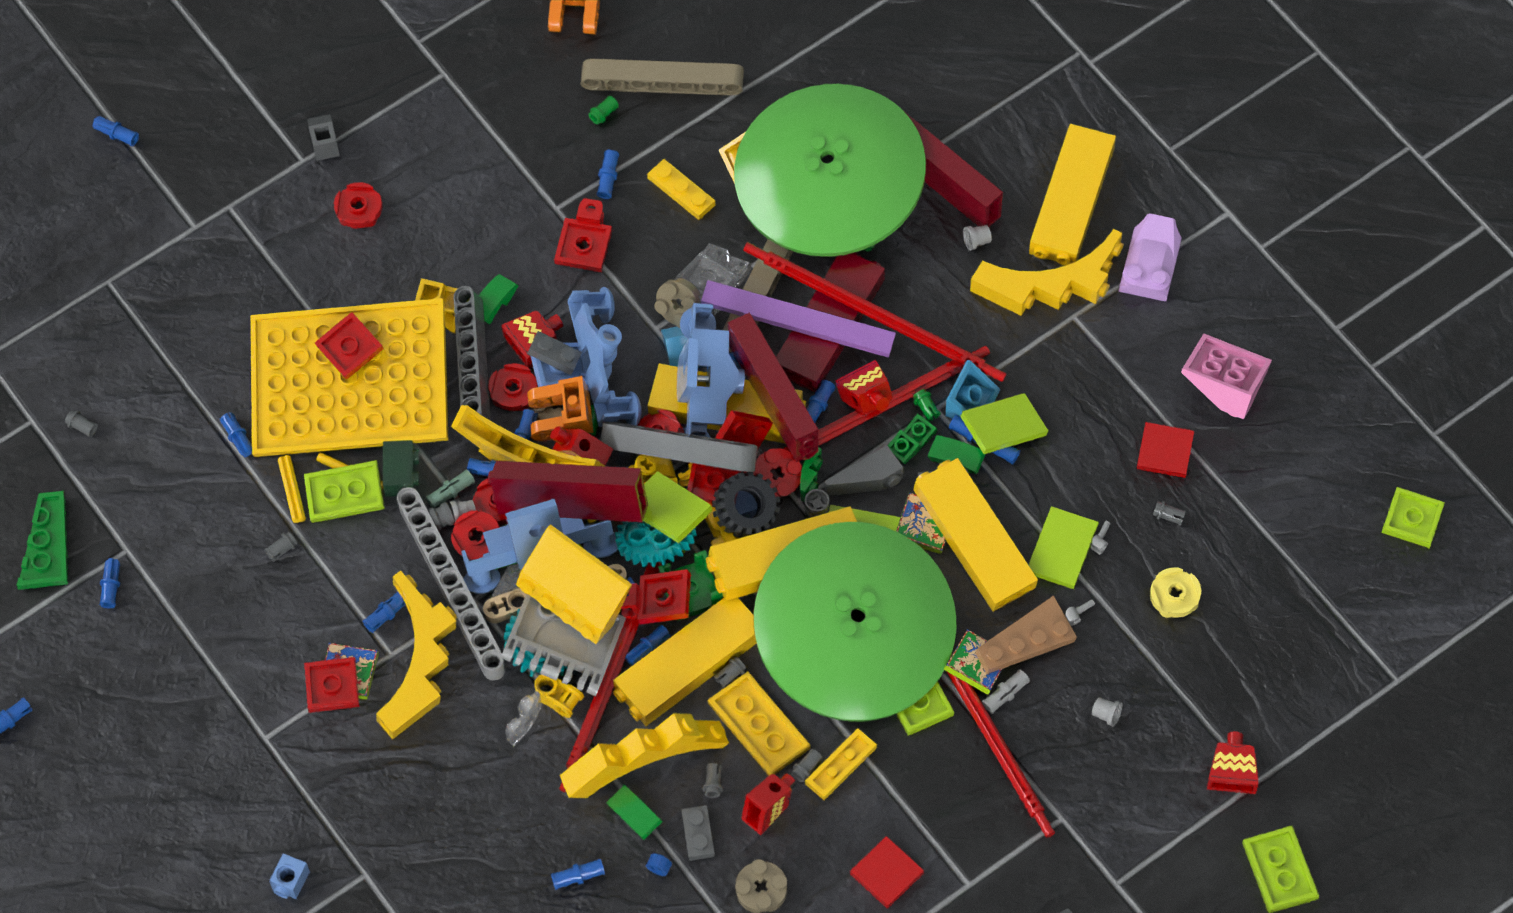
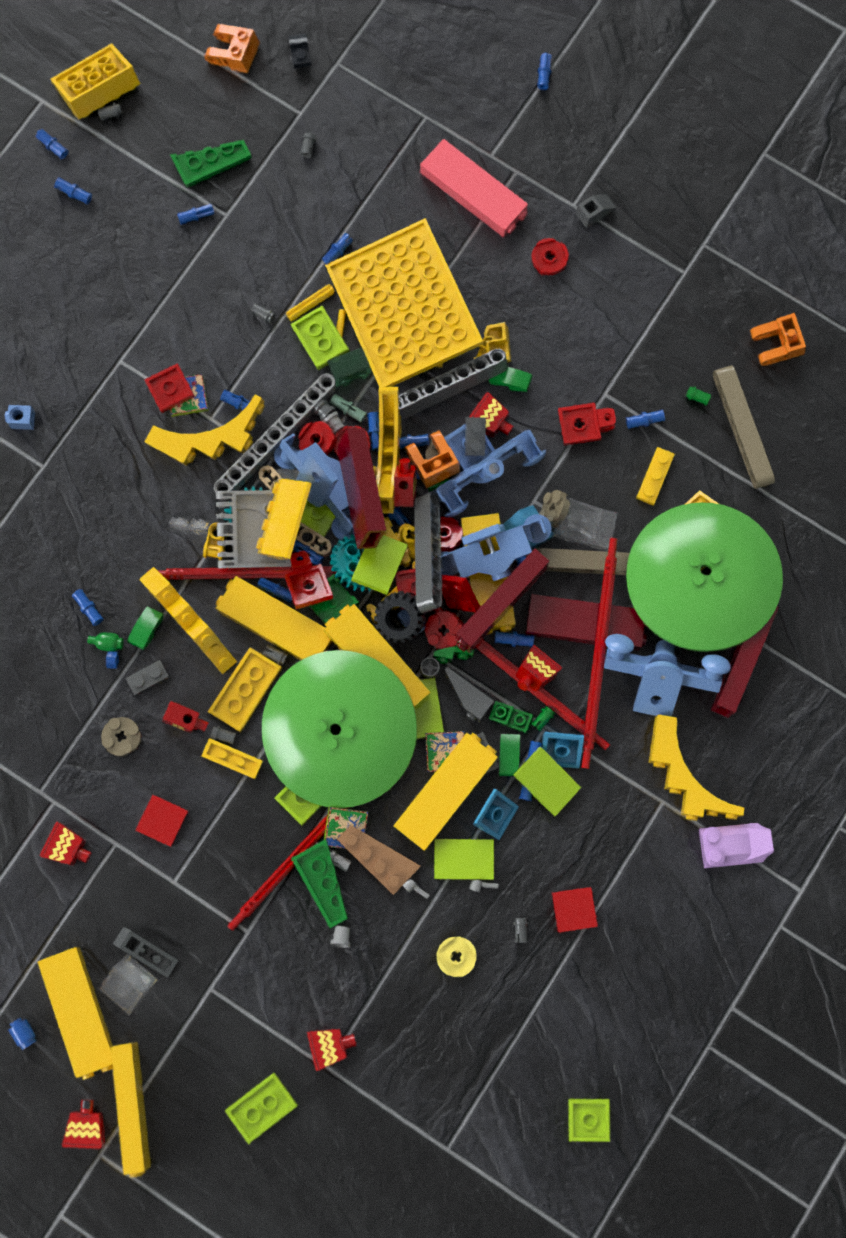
camera: 65 degrees right, 15 degrees up
(231, 256) = (474, 188): none -> coral brick
(349, 345) = (422, 292): red plate -> none
(505, 377) = (447, 409): red plate -> none
(632, 864) = (106, 641): none -> green plant
(713, 780) = (189, 673): dark grey pin -> none
(799, 318) = (571, 599): medium lavender tile -> none
(926, 255) = (662, 673): none -> medium blue piece
(976, 236) = (700, 706): light grey piece -> none
(1020, 495) = (496, 814): none -> dark azure slope
(1026, 708) = (321, 880): none -> green wing
(1072, 195) = (765, 765): yellow brick -> none
(1226, 374) = (655, 935): bright pink slope -> none

